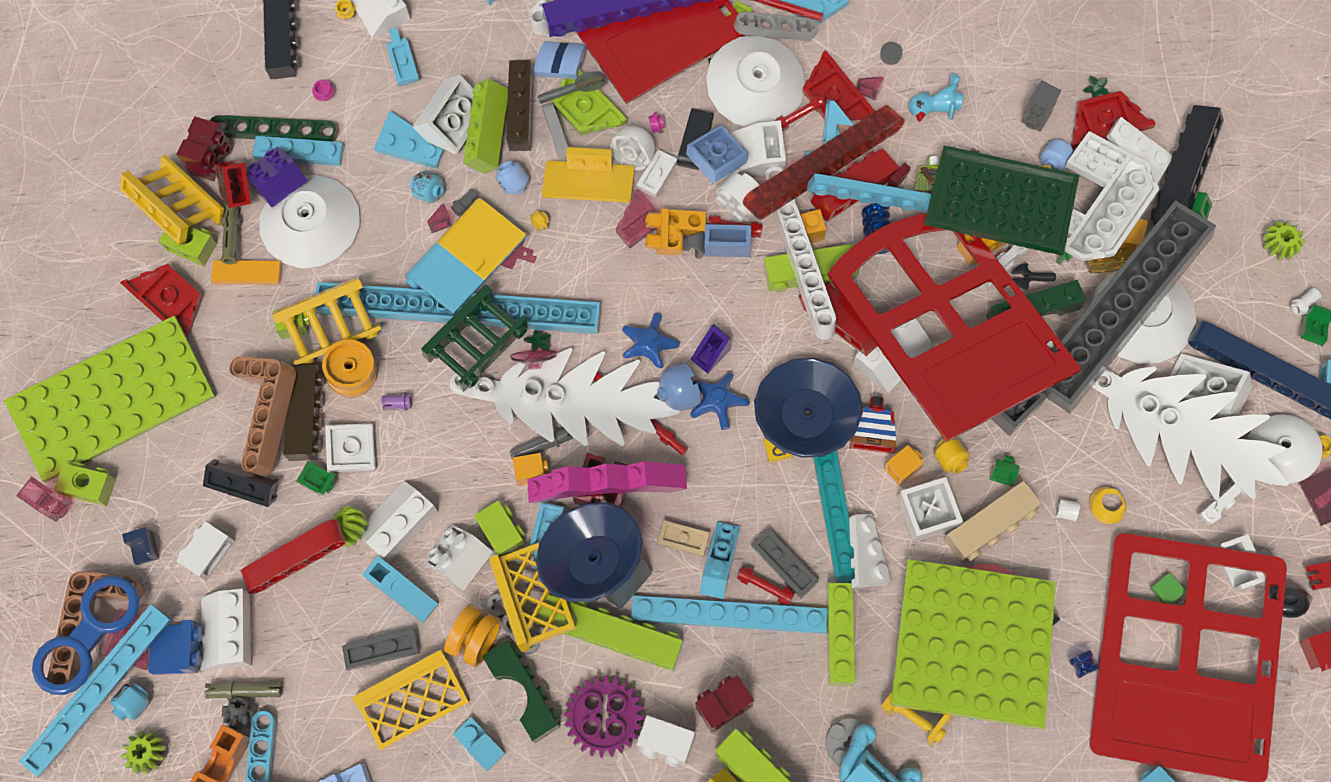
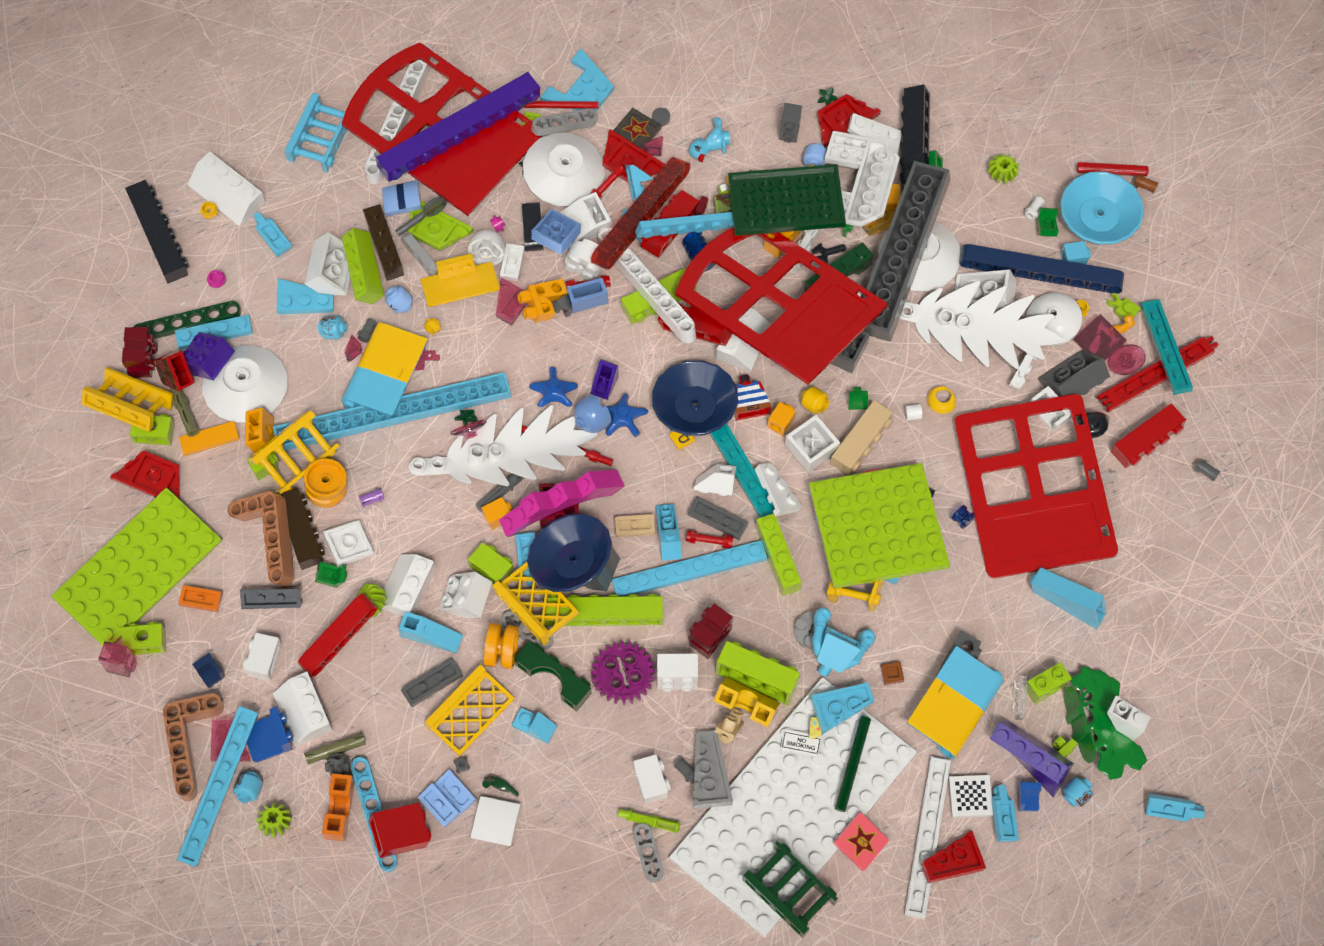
camera: 25 degrees left, 5 degrees down
(85, 635) = (195, 746): blue bar -> none
(164, 457) = (200, 598): none -> orange plate
(300, 279) = (258, 428): none -> light orange brick
(378, 762) = (461, 765): none -> dark grey piece
(468, 317) = (406, 414): dark green fence -> none
(799, 516) = (717, 479): none -> white slope
(814, 226) = (651, 262): light orange brick -> none
(858, 58) = (638, 128): none -> clear smoke tile
(1168, 589) = (1005, 444): bright green tile -> none
(1287, 530) = (1076, 374): none -> dark grey slope

